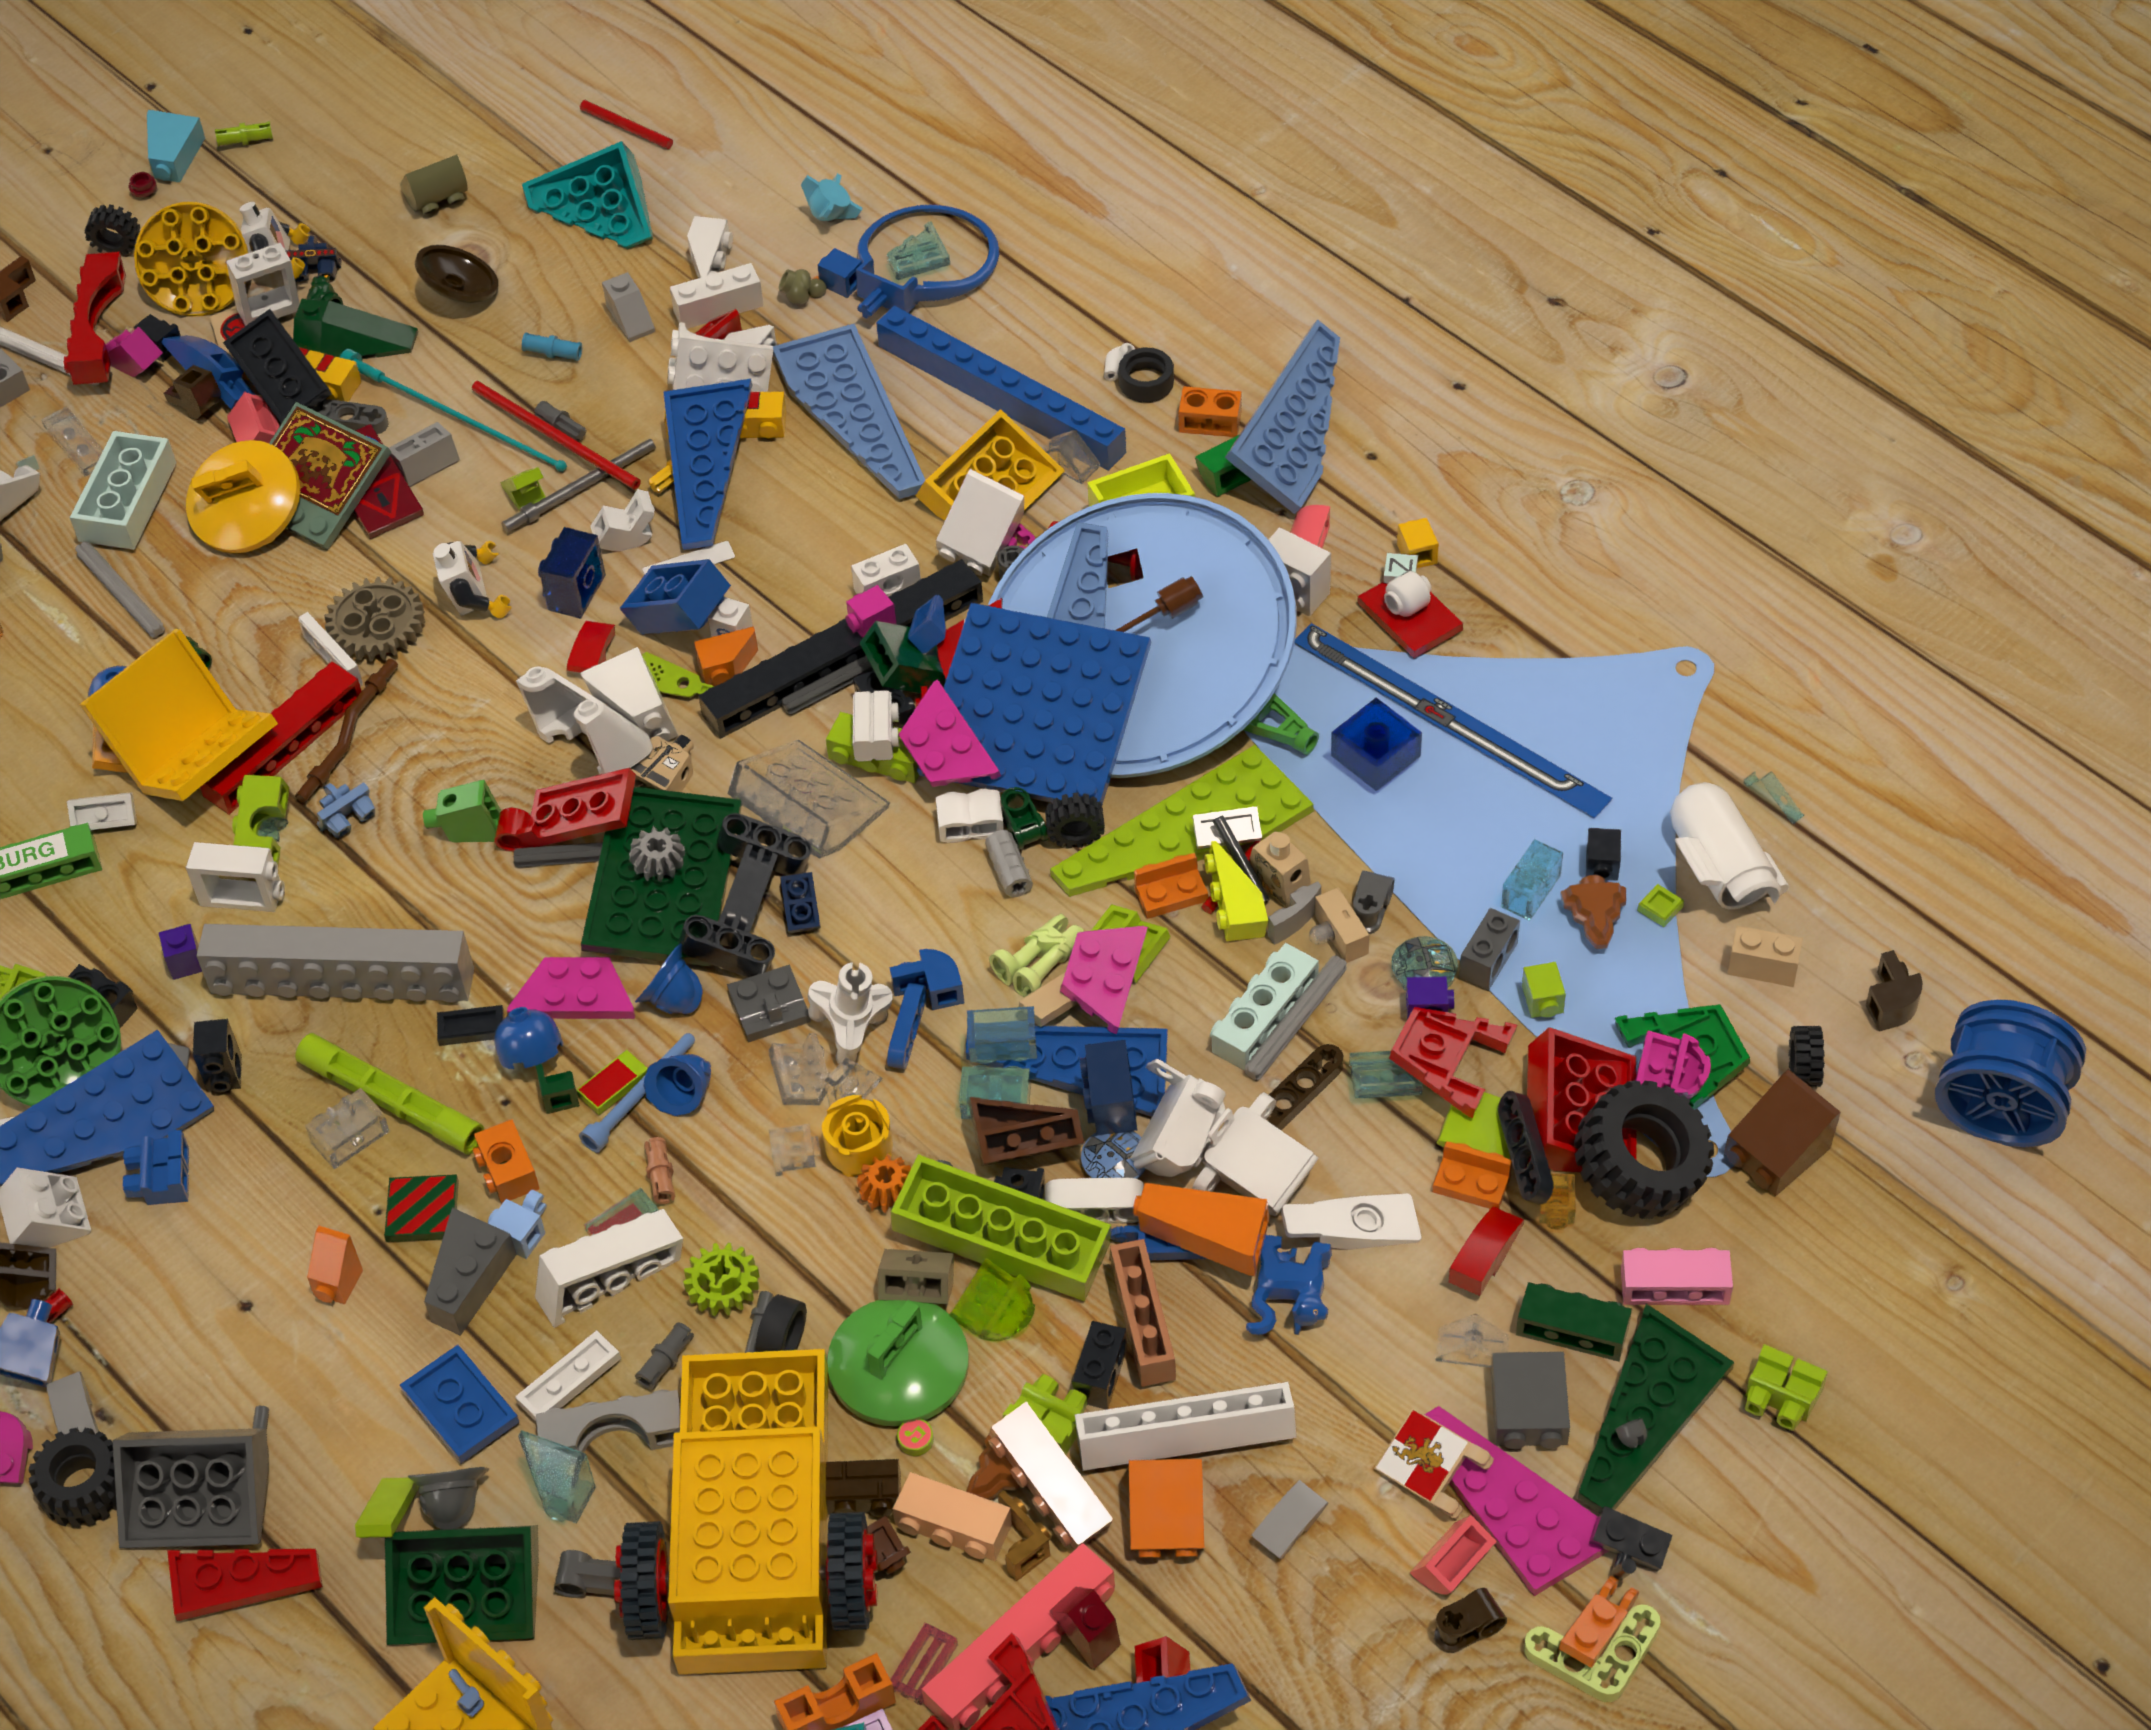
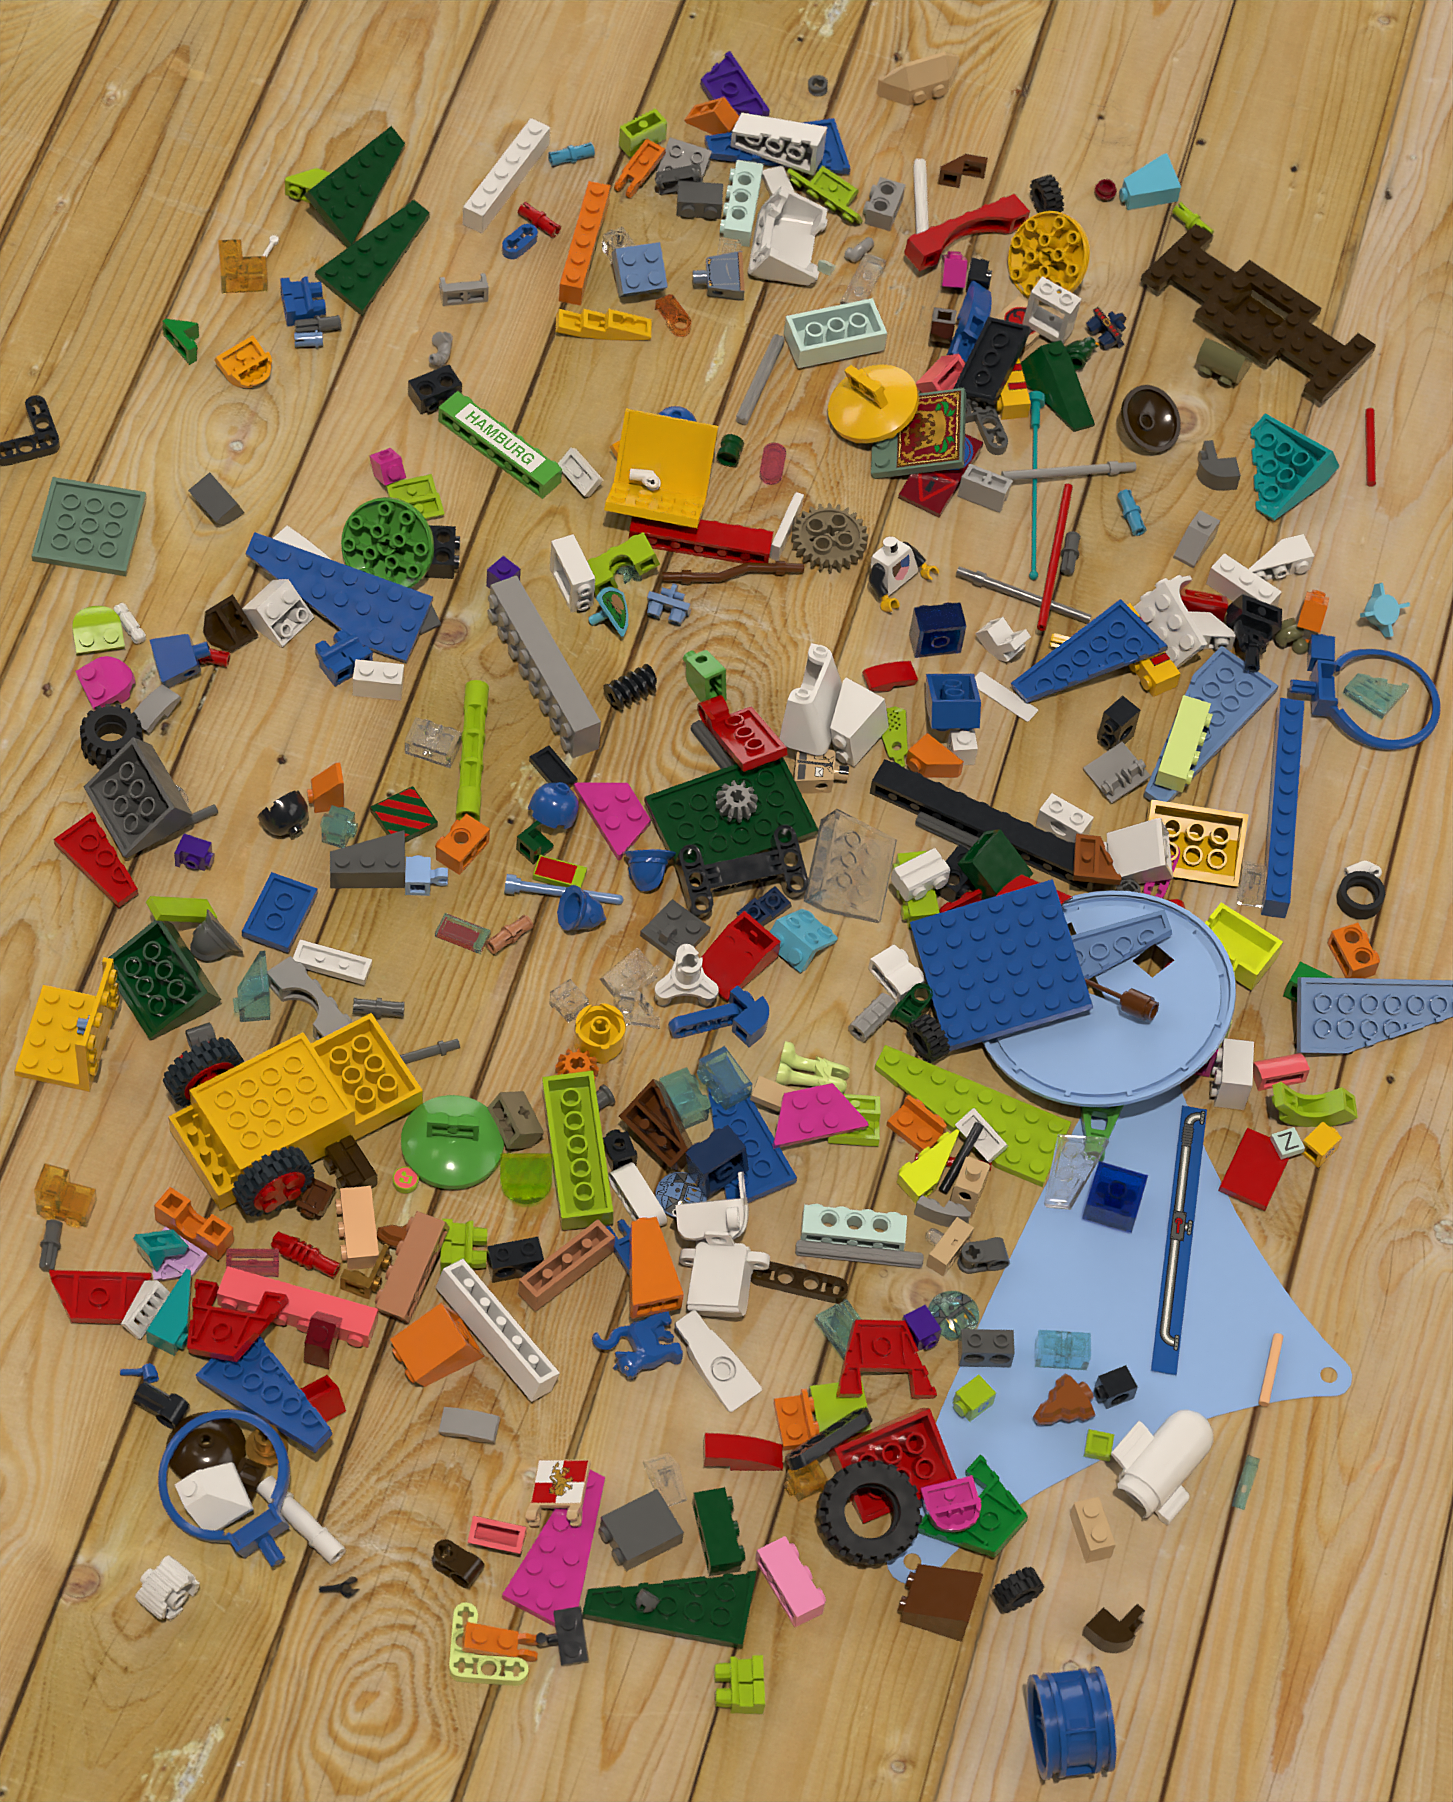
camera: 50 degrees right, 5 degrees up
(34, 419) = (859, 250): none -> light grey arm
(168, 744) = (647, 477): none -> white arm
(217, 1055) = (436, 640): black brick -> none
(220, 1145) = (378, 679): none -> white brick
(236, 628) = (772, 463): none -> clear pink tile
(263, 229) = (1101, 289): torso -> none
(308, 871) = (613, 607): none -> shield
(310, 1459) = (194, 853): none -> dark purple brick
(334, 1330) = (285, 815): none -> black cylinder
(388, 1282) = (338, 826): none -> clear light blue brick
(400, 147) = (1249, 323): none -> dark brown piece
(425, 892) = (631, 686): none -> black piece
(482, 340) = (1110, 468): none -> light grey bar
(524, 487) = (997, 563): lime slope -> none
(559, 255) = (1217, 473): none -> dark grey brick
(605, 1263) = (421, 938): white wedge -> none
(718, 1275) = (451, 1009): lime gear -> none
(771, 303) = (1254, 626): none -> black brick
(781, 1325) = (429, 1061): black tyre -> none
(793, 248) = (1313, 611): none -> orange brick
(806, 471) = (1118, 723): none -> black brick
(845, 935) = (739, 954): none -> red slope
(857, 505) = (1117, 772): none -> light grey hinge
(864, 886) = (801, 937): none -> medium azure bracket
(867, 608) = (1015, 824): dark pink brick -> none
(871, 428) = (1183, 743): none -> yellowish green brick
(928, 625) = (1025, 864): blue slope -> none
(944, 742) = (935, 924): dark pink wing -> none
(951, 1596) = (304, 1254): none -> red hinge
(961, 567) = (1093, 862): none -> dark orange wing
(1315, 767) = (1071, 1168): none -> clear wing
(1375, 526) = (1311, 1110): none -> lime arch
(1407, 594) = (1262, 1156): white head -> none
(1655, 712) = (1271, 1369): none -> light nougat bar

